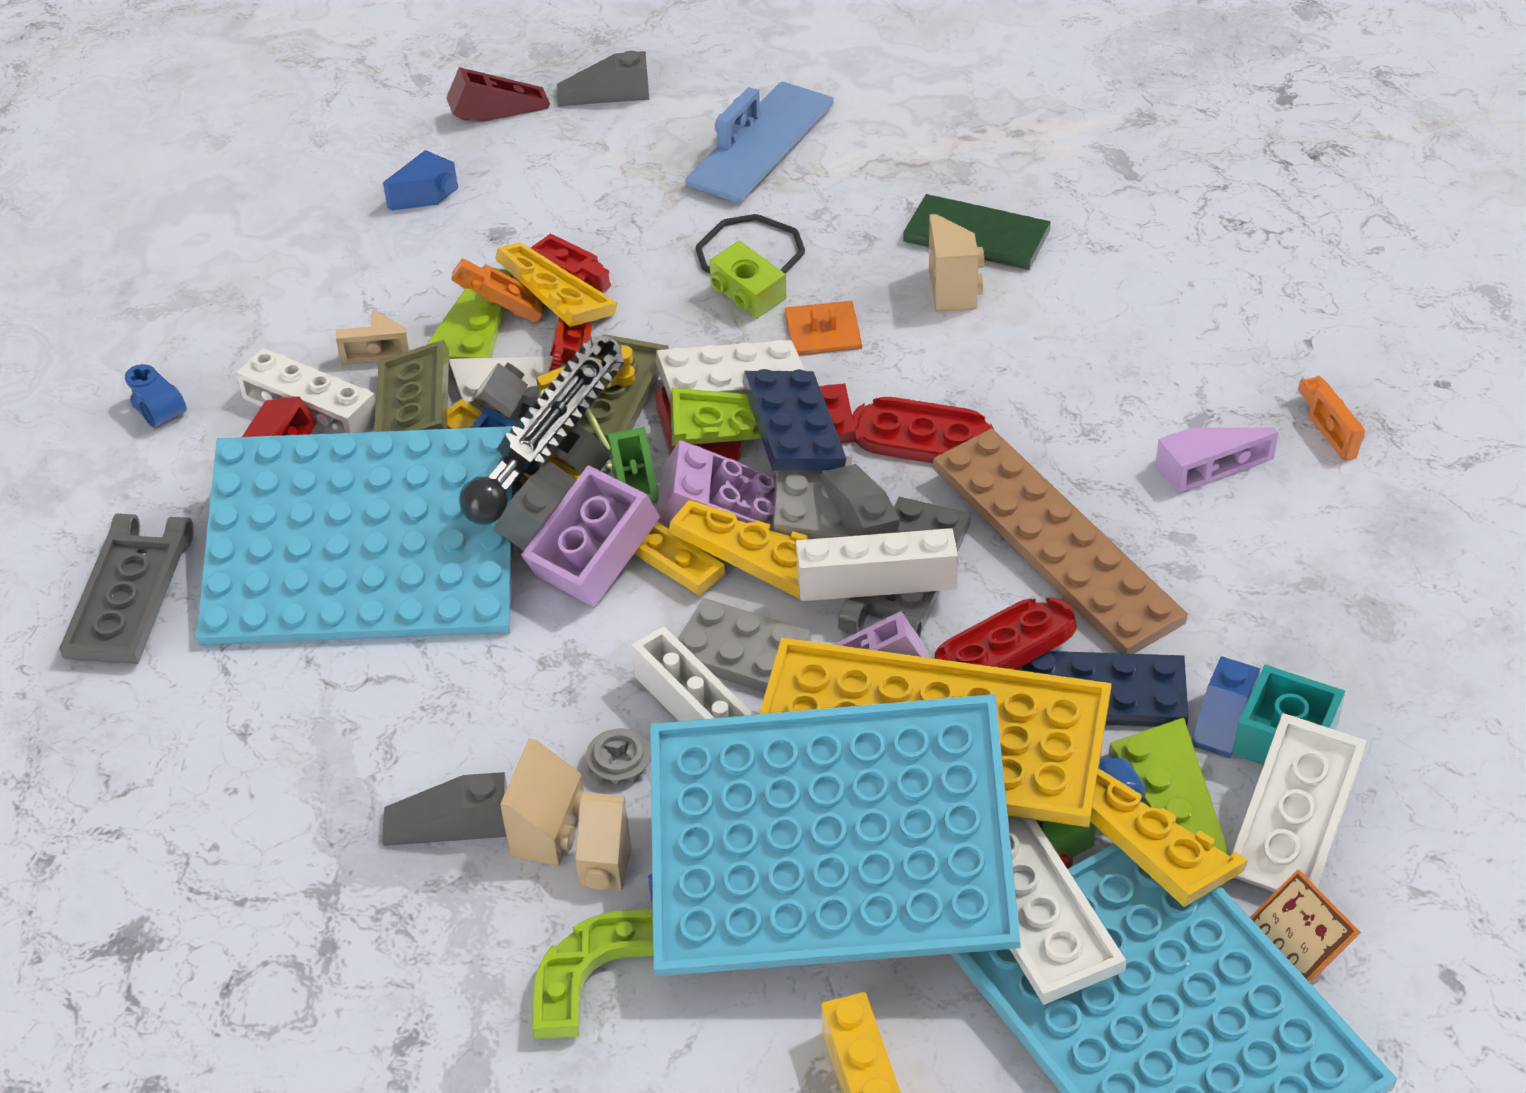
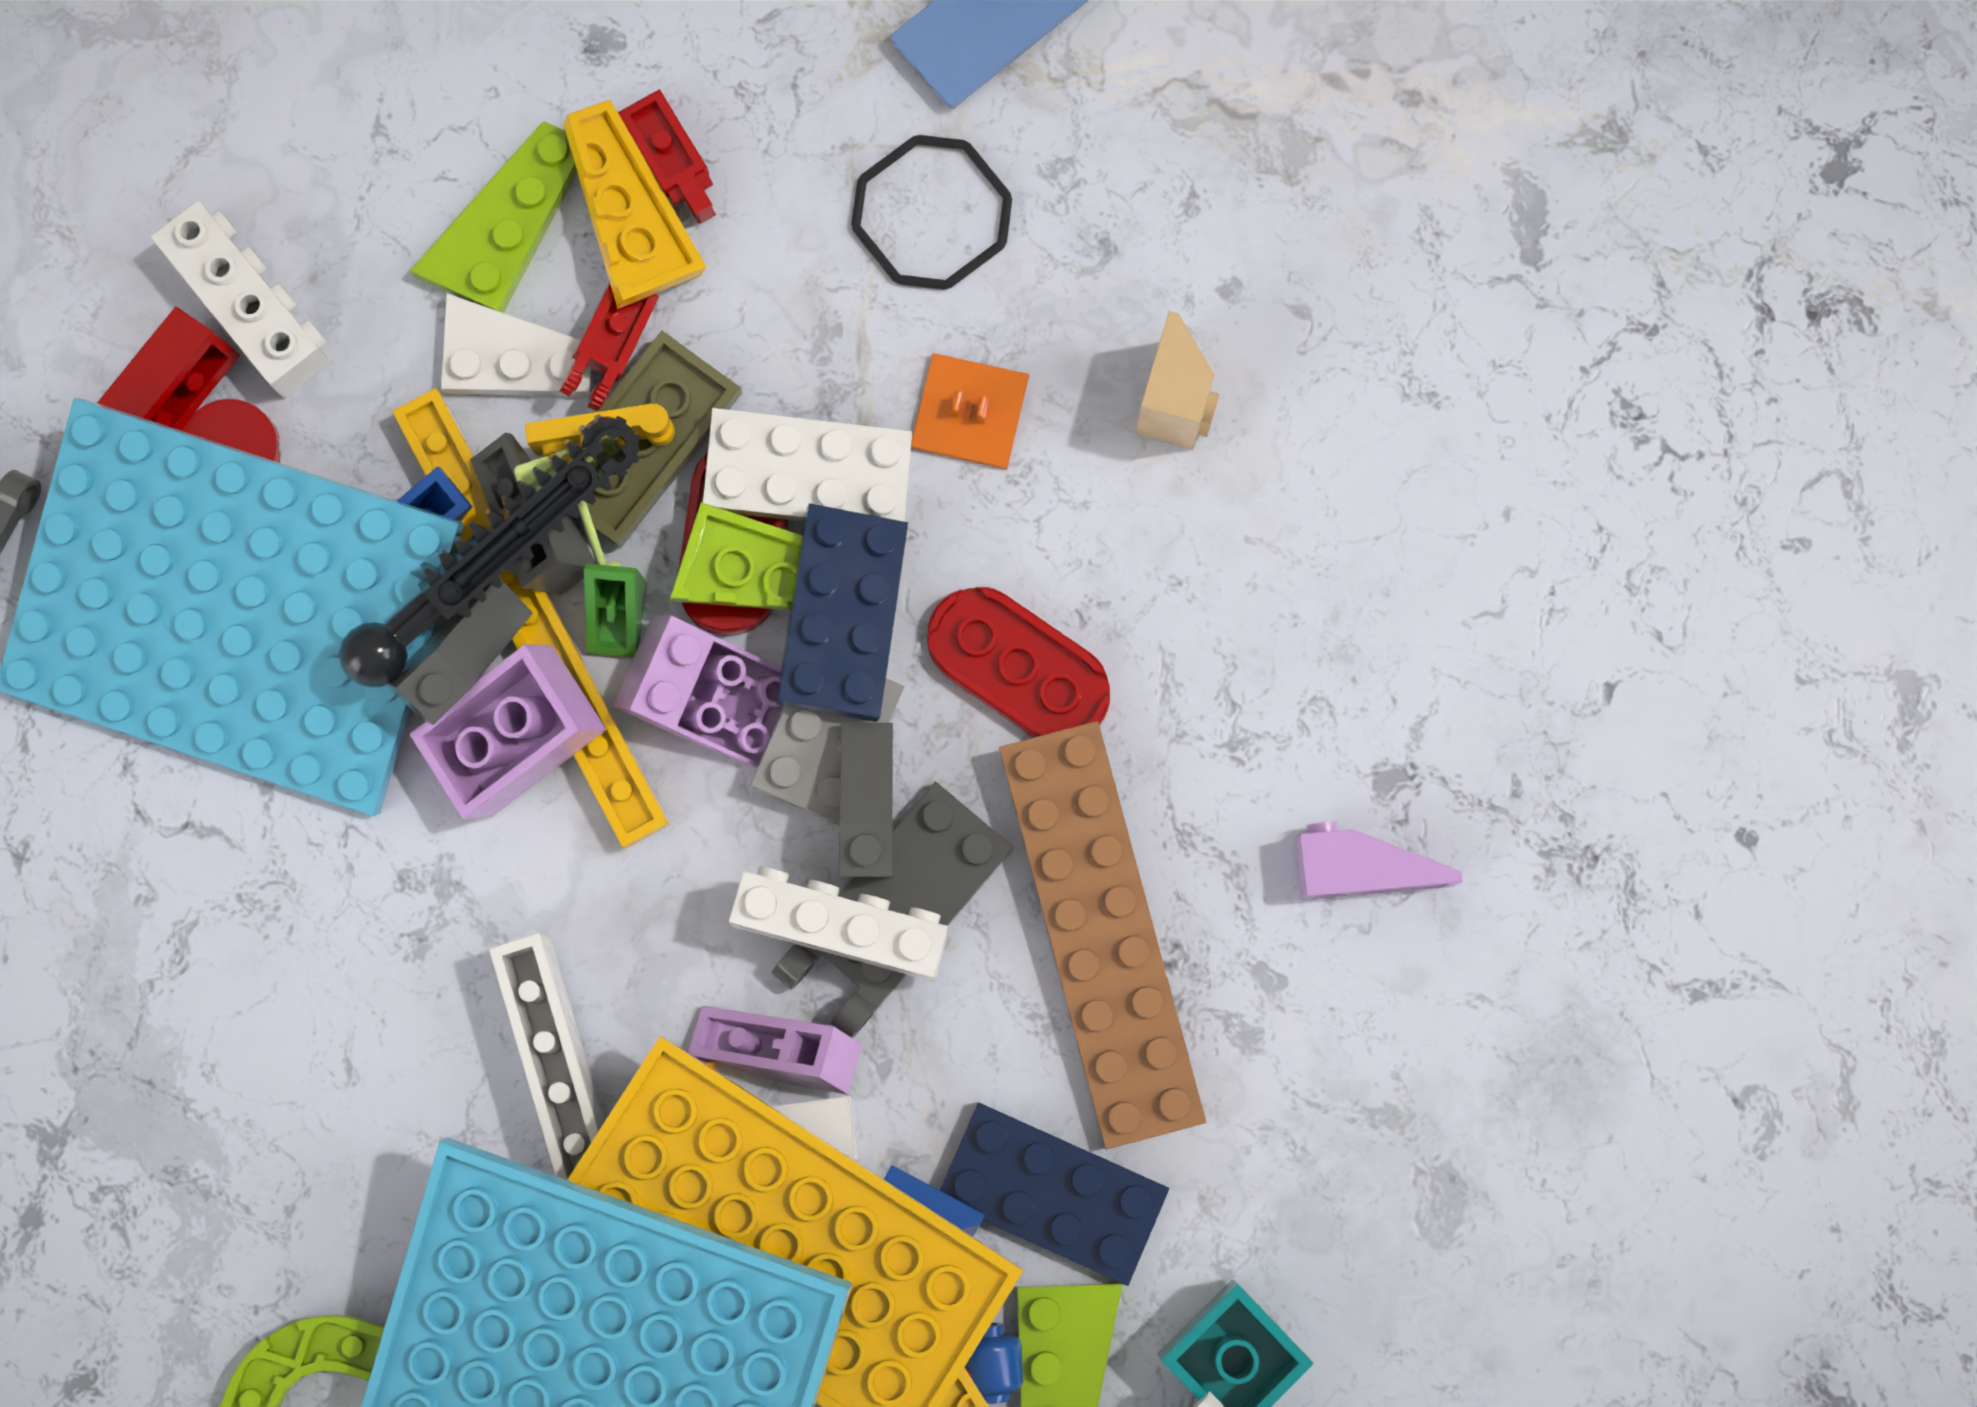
camera: 20 degrees right, 35 degrees up
(153, 395) = (42, 228): blue piece -> none
(372, 343) = (362, 226): tan slope -> none
(413, 390) = (370, 364): olive plate -> none
(449, 812) = (213, 1092): dark grey slope -> none
(498, 289) = (541, 198): orange hinge -> none
(501, 390) = (470, 430): dark grey slope -> none
(541, 806) = (314, 1142): tan slope -> none
(602, 841) = (362, 1226): tan slope -> none
(616, 743) = (414, 1072): light grey gear -> none
(737, 642) = (644, 953): light grey plate -> none
(741, 544) = (713, 808): yellow wing -> none
(747, 279) = (892, 264): lime brick -> none
(840, 411) = (919, 587): red plate -> none
(1002, 234) = (1257, 298): dark green tile -> none
(1013, 635) = (960, 1085): red tile -> none
(1223, 706) = (1176, 1295): slope -> none
(1332, 417) = (1559, 854): orange hinge -> none

